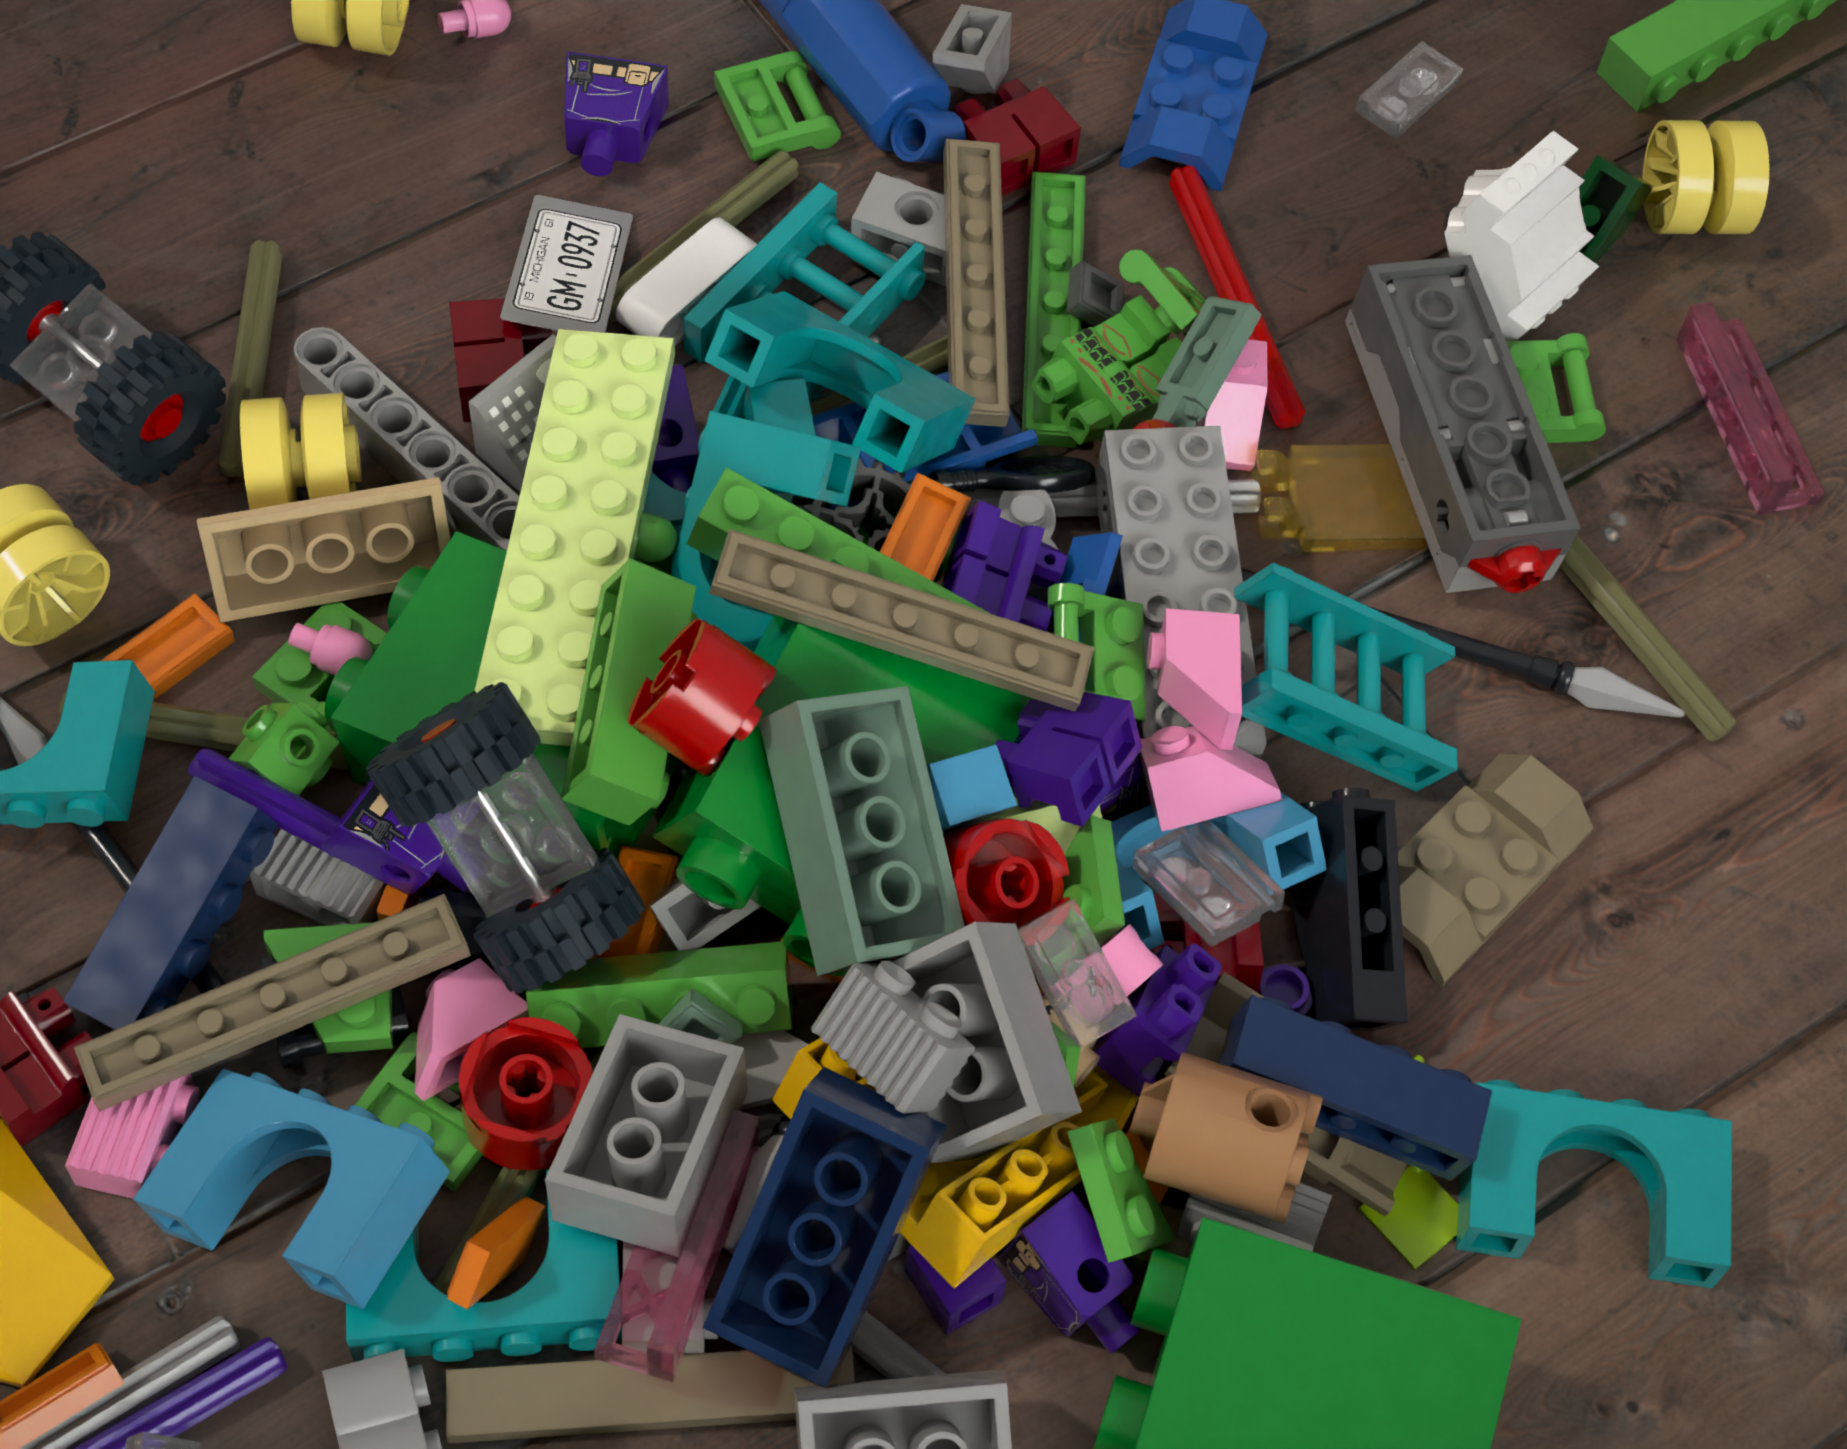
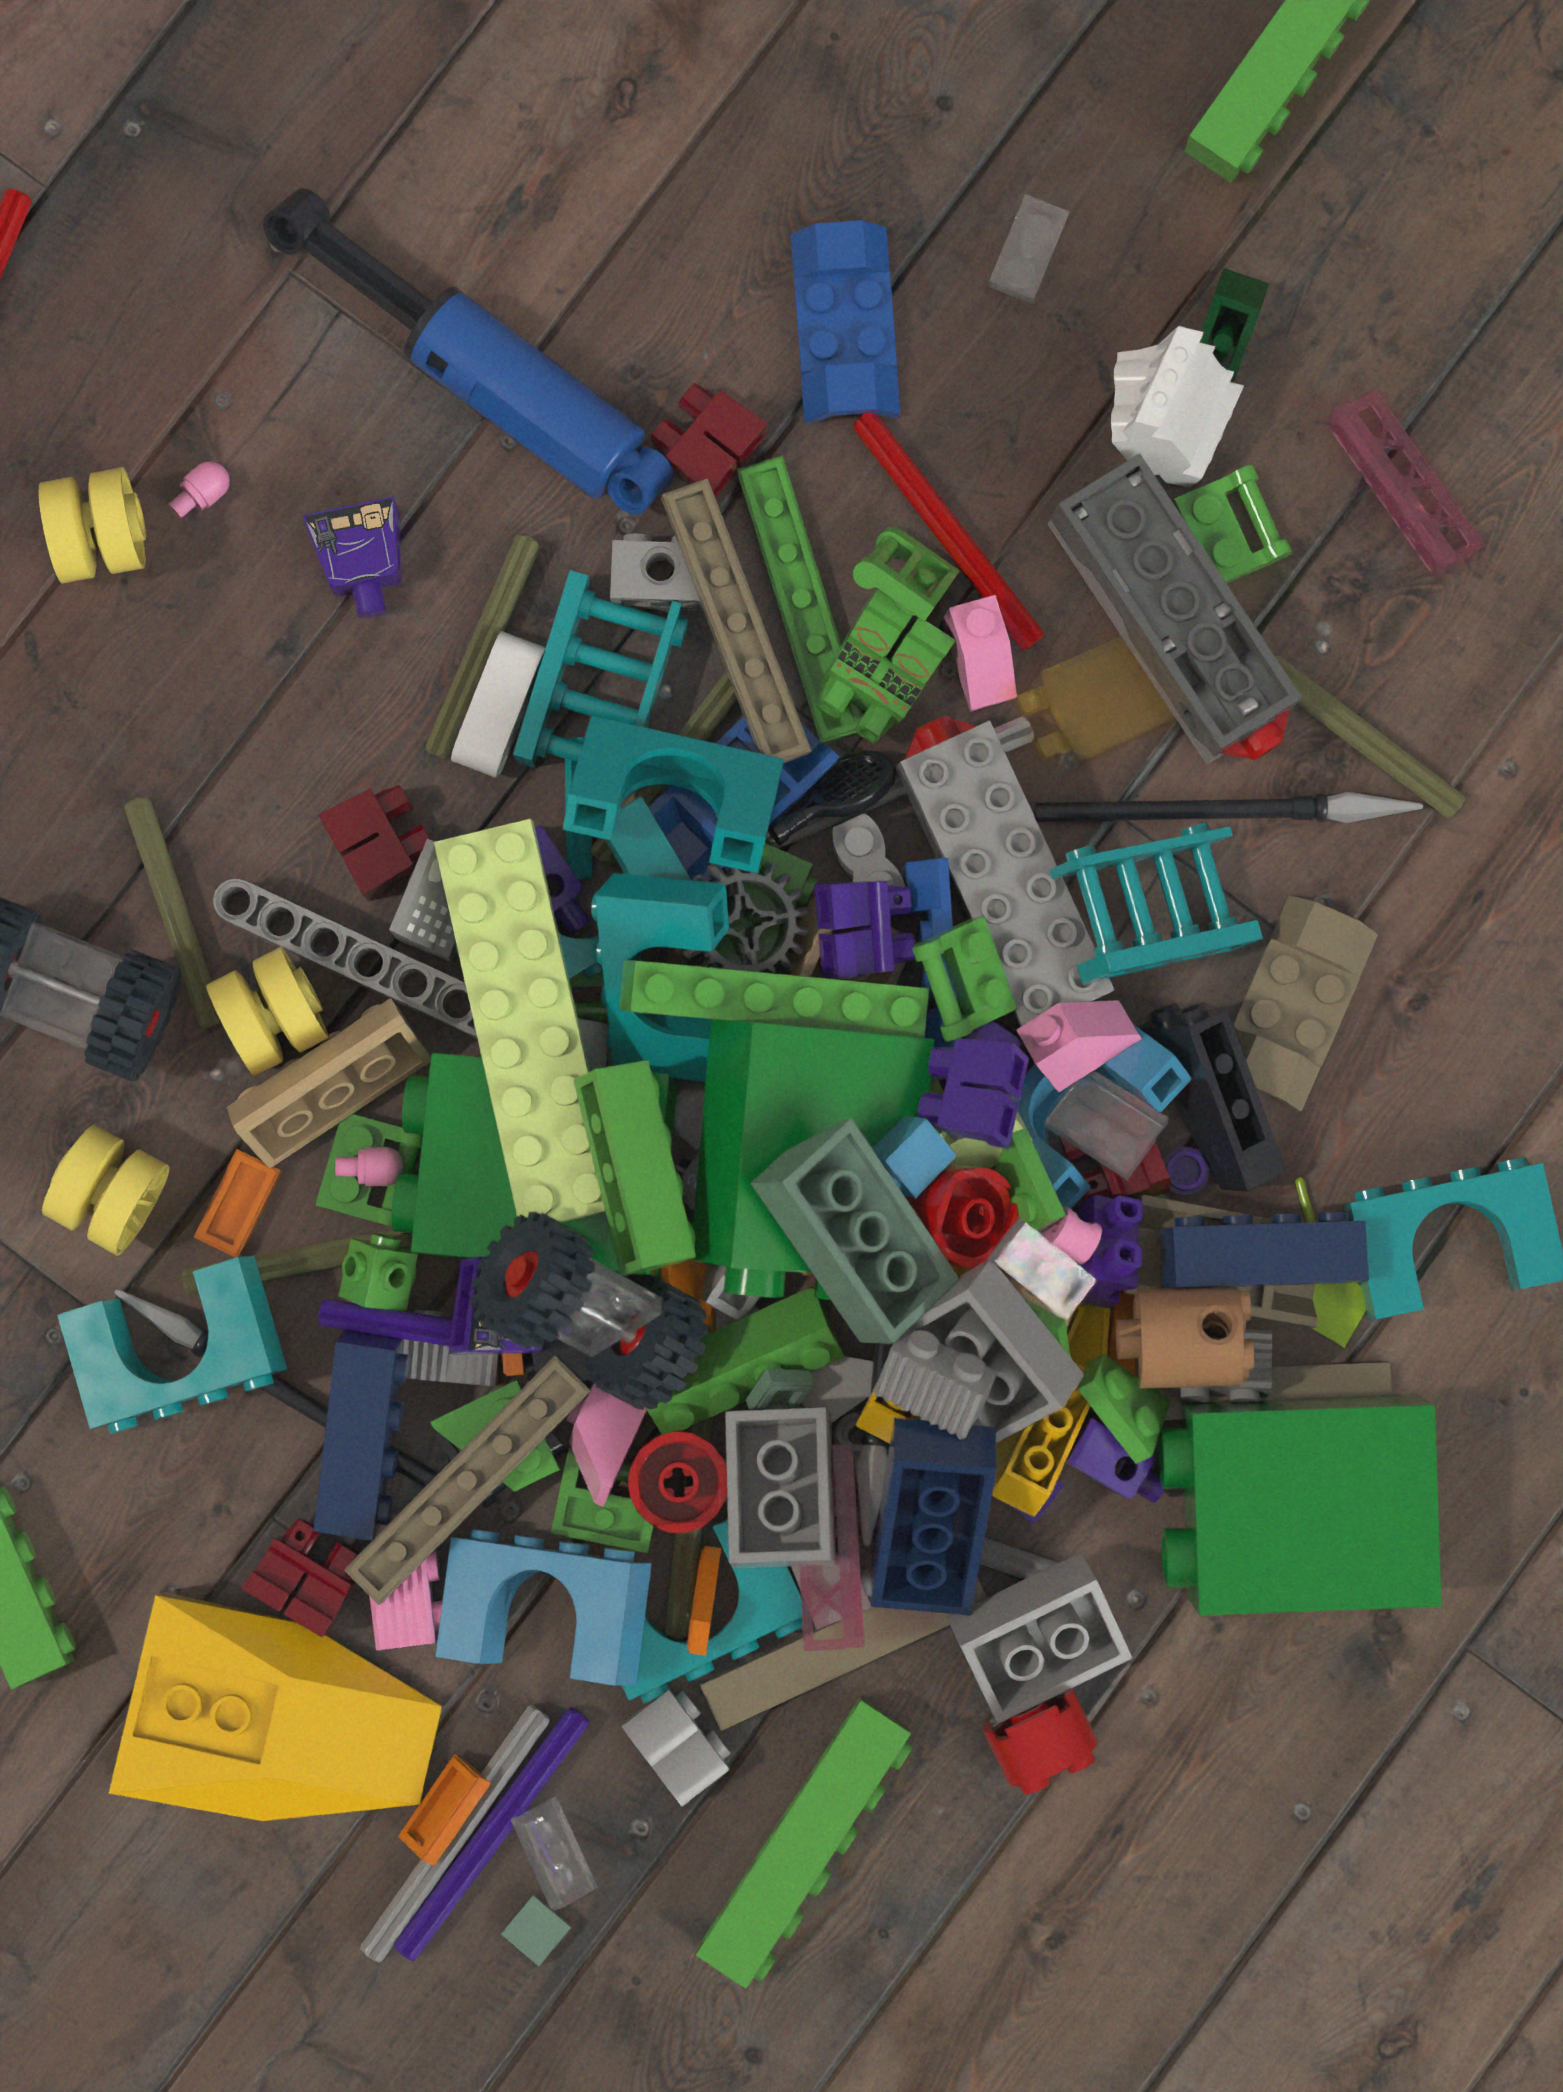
camera: 15 degrees left, 25 degrees up
(567, 266) = (394, 731): sticker -> none
(655, 538) = (587, 997): bright green hinge -> none
(701, 696) = (699, 1177): red brick -> none
(761, 112) = (482, 494): bright green plate -> none
(902, 620) = (822, 1053): dark tan tile -> none
(925, 526) = (791, 922): orange tile -> none
(975, 49) = (647, 374): light grey slope -> none
(1093, 294) = (834, 584): dark grey tile -> none
(1200, 670) = (1050, 967): bright pink slope -> none
(1204, 360) = (953, 650): sand green hinge -> none
(1706, 177) = (1311, 265): light yellow wheel -> none

